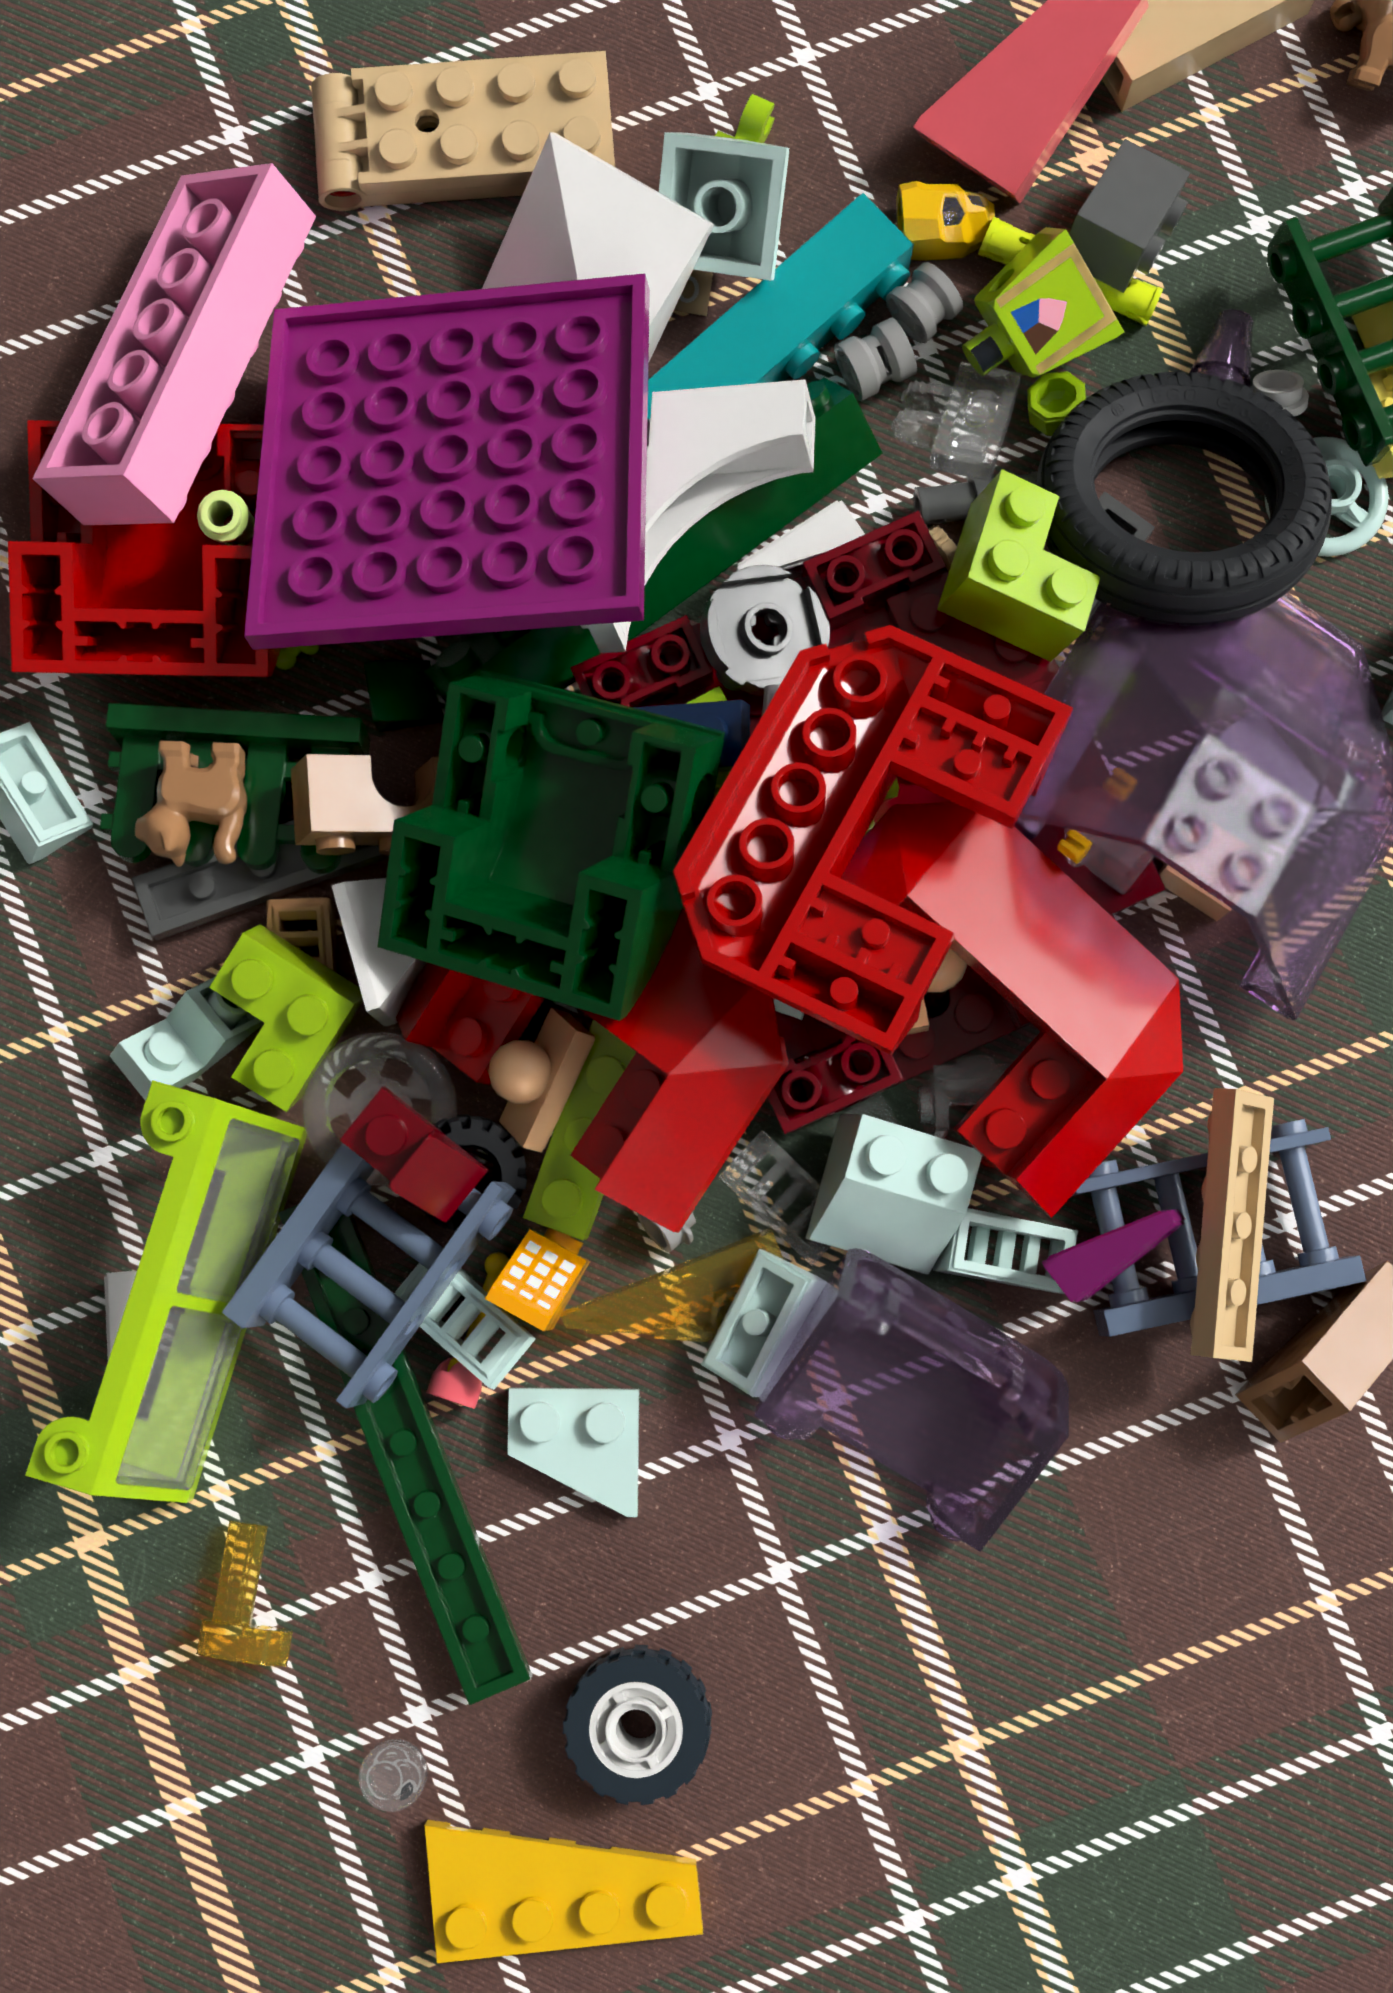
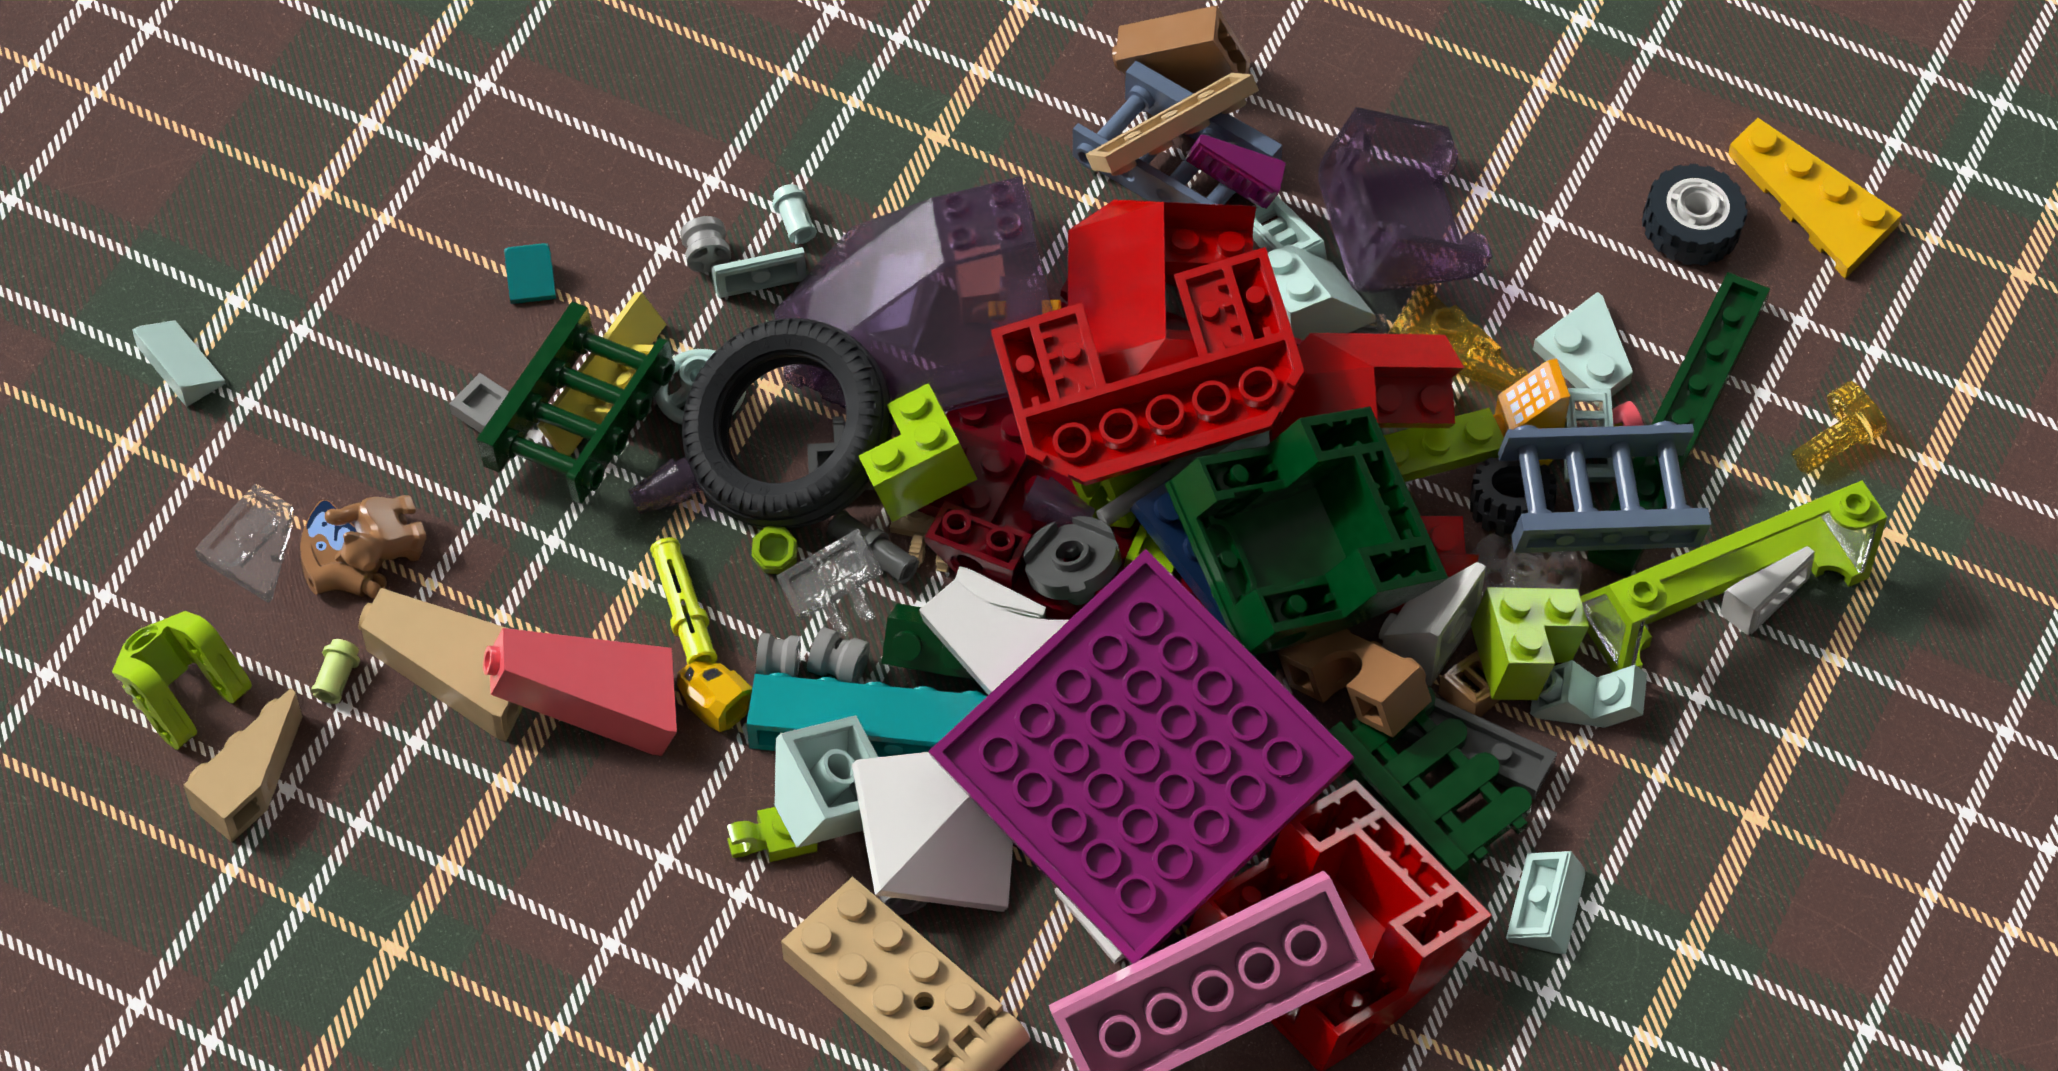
camera: 135 degrees left, 25 degrees down
(196, 794) = (1457, 771): medium nougat animal -> none
(215, 510) = (1289, 863): yellowish green pin -> none
(393, 1775) = (1841, 305): clear tile -> none
(413, 1155) = (1535, 486): dark red slope -> none
(539, 1077) = (1439, 486): light nougat tile -> none
(762, 1322) = (1440, 301): light aqua slope -> none
(1041, 310) = (735, 581): lime torso -> none
(1127, 212) = (629, 586): dark grey brick -> none
(1284, 388) = (663, 443): white plate -> none

